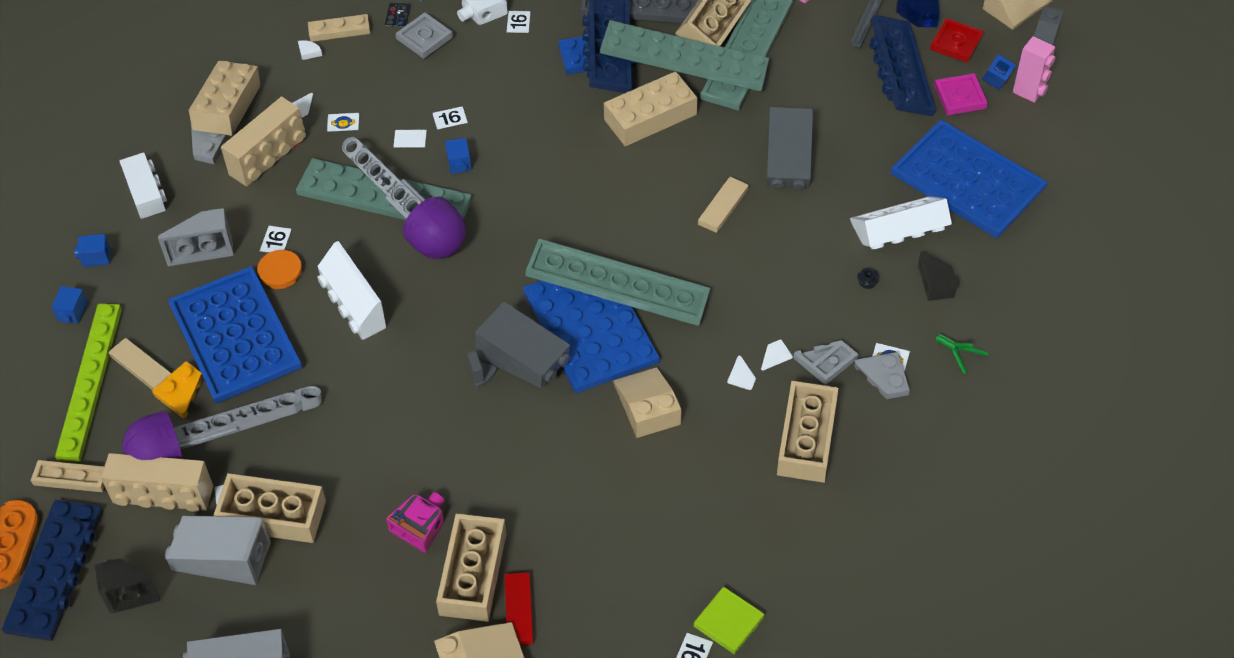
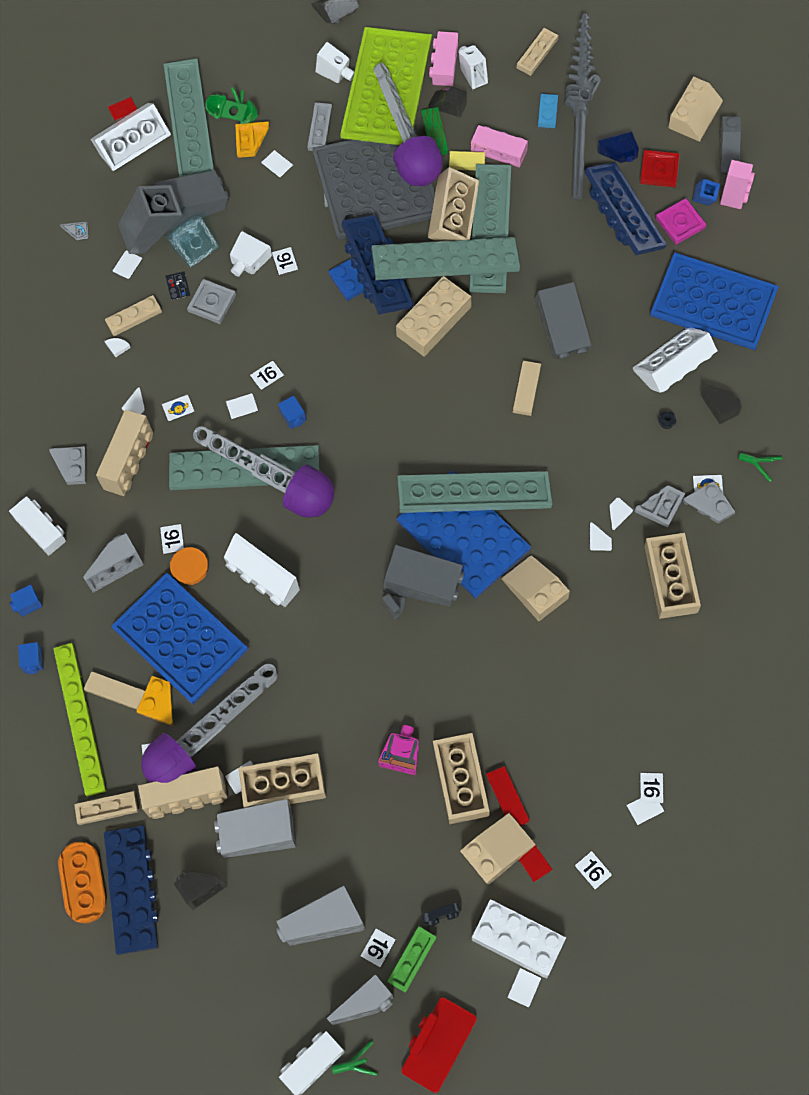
camera: 15 degrees left, 15 degrees up
(224, 98) = (70, 420): tan brick -> none
(729, 620) = (668, 752): lime tile -> none

